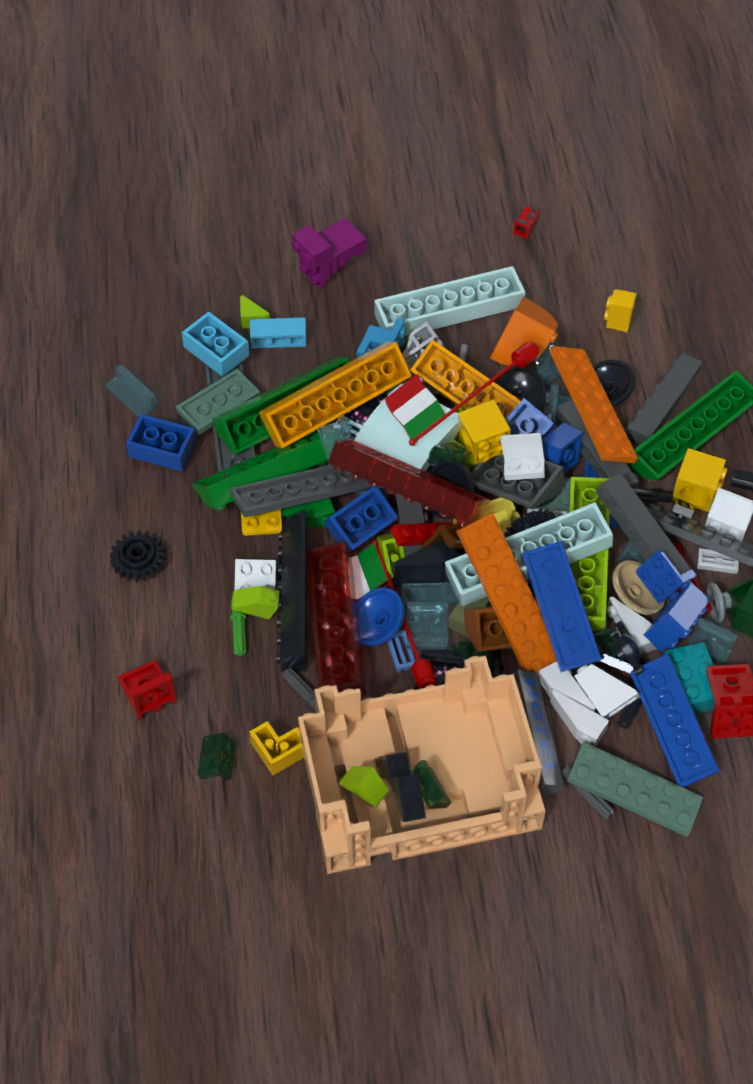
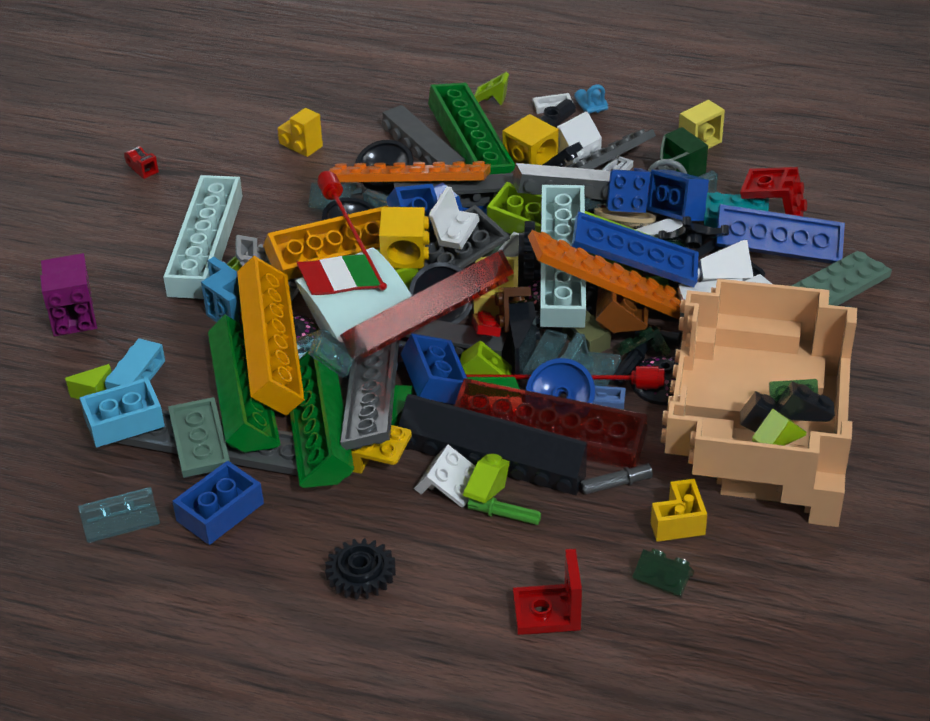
camera: 65 degrees left, 15 degrees down
(448, 451) = (409, 265): clear green bracket -> none
(527, 324) = (287, 195): orange brick -> none

